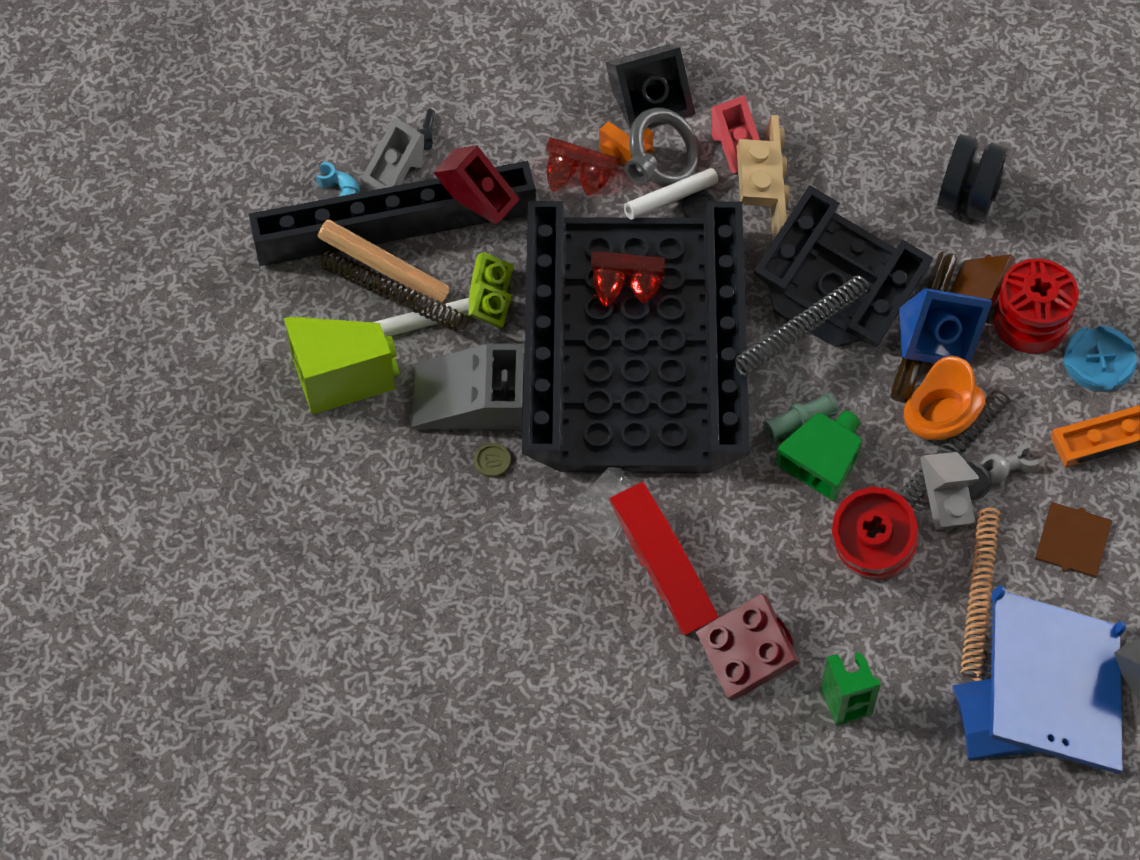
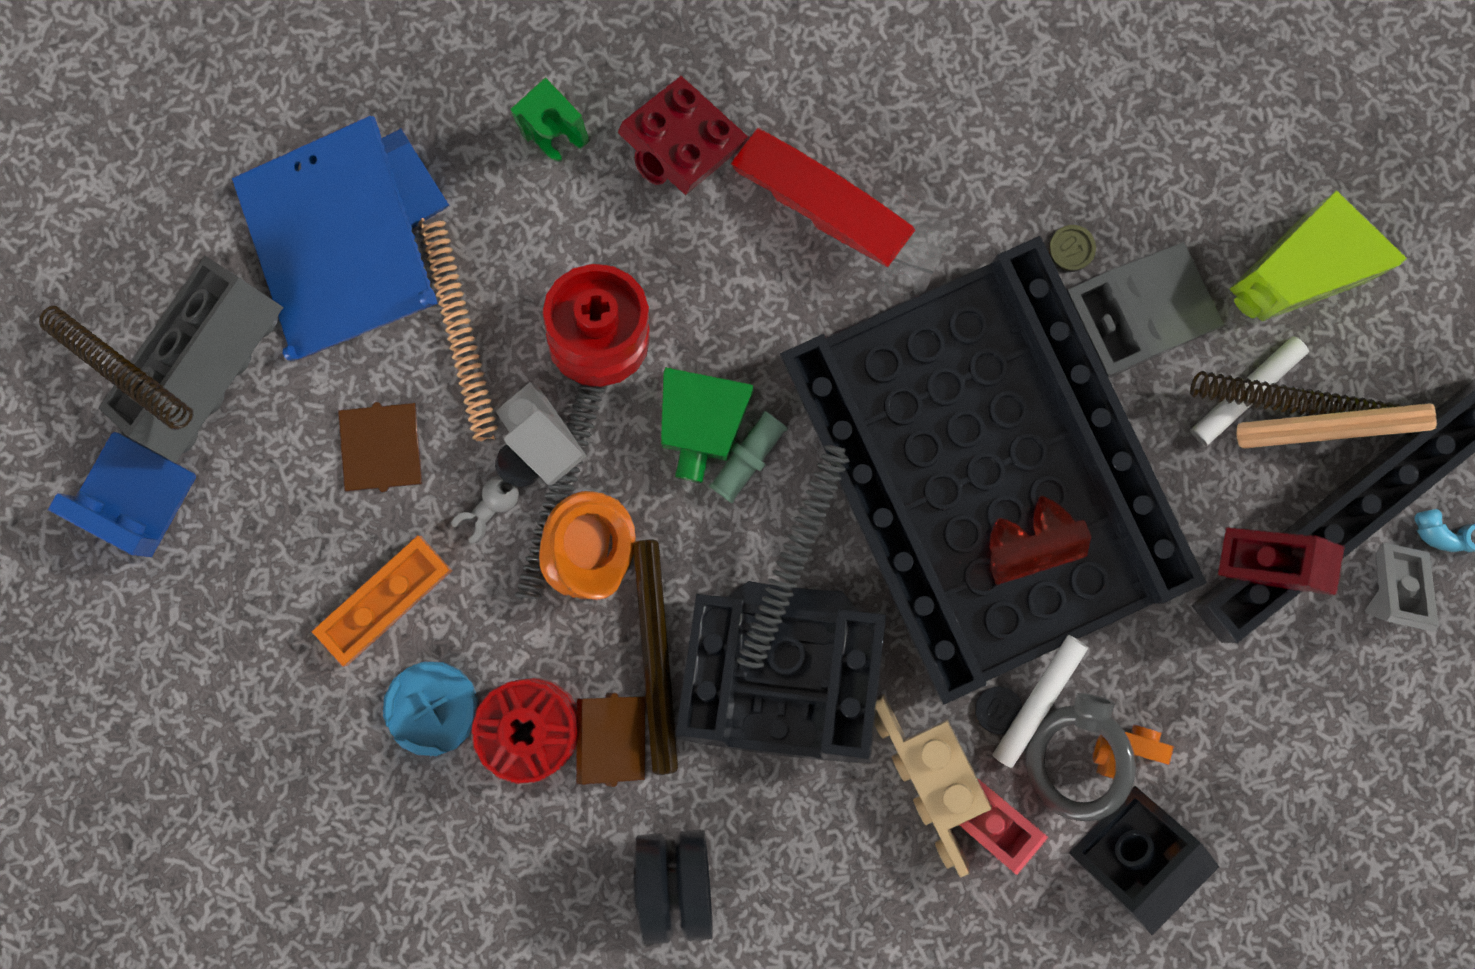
camera: 155 degrees right, 25 degrees up
(427, 129) = (1385, 651): black hand -> none
(489, 289) = (1190, 460): lime slope -> none
(565, 159) = (1193, 699): clear red tile -> none
(942, 325) = (628, 642): blue slope -> none

